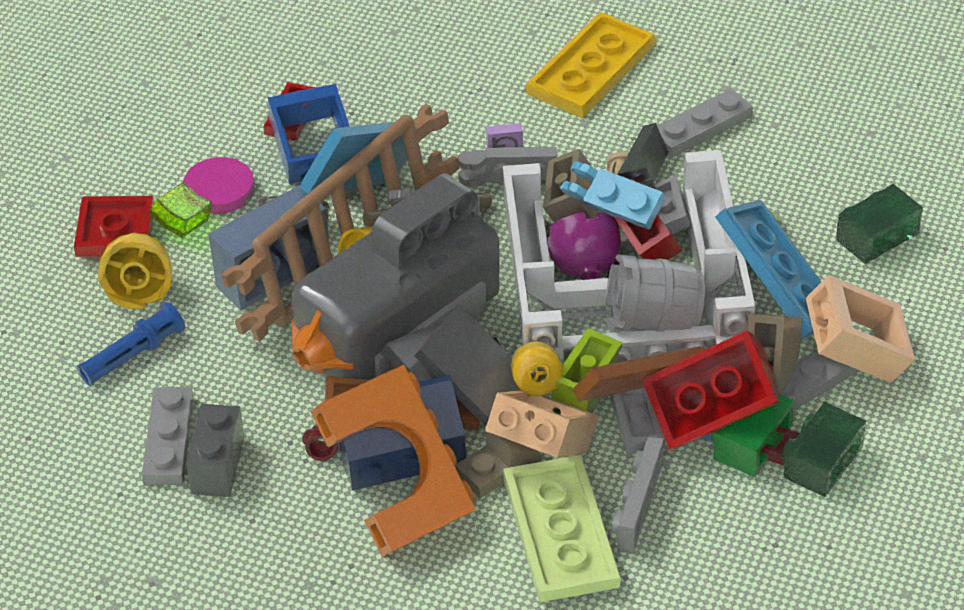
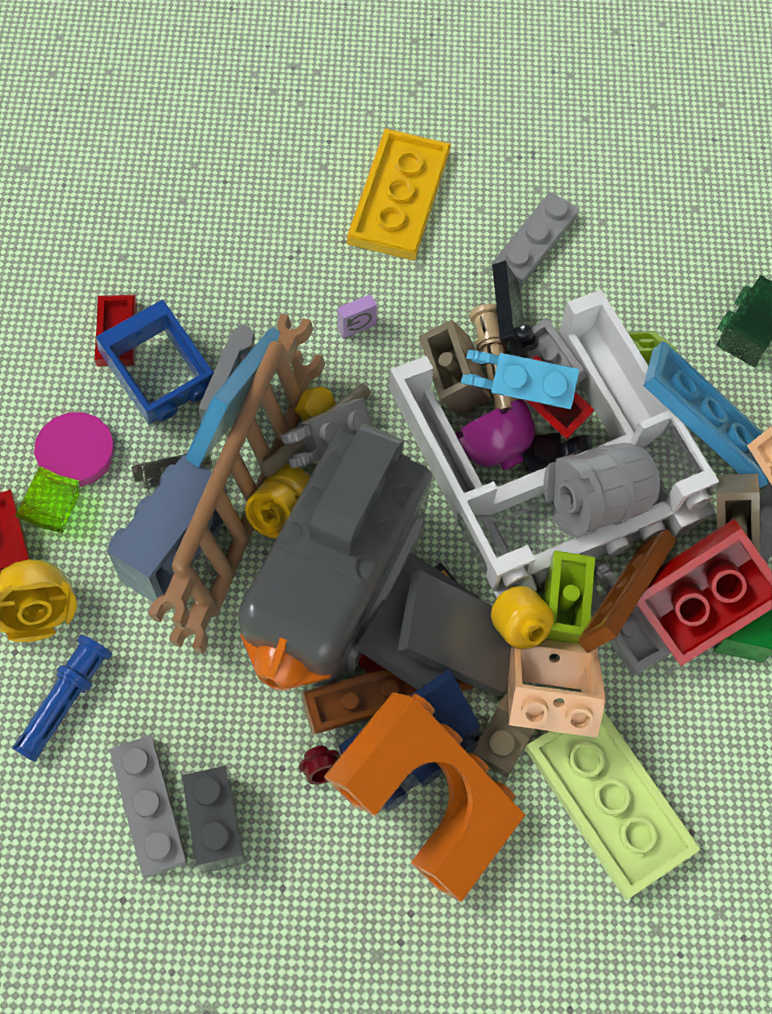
camera: 25 degrees left, 20 degrees up
(488, 164) = (372, 345): light grey hinge -> none
(638, 494) = (672, 732): light grey plate -> none

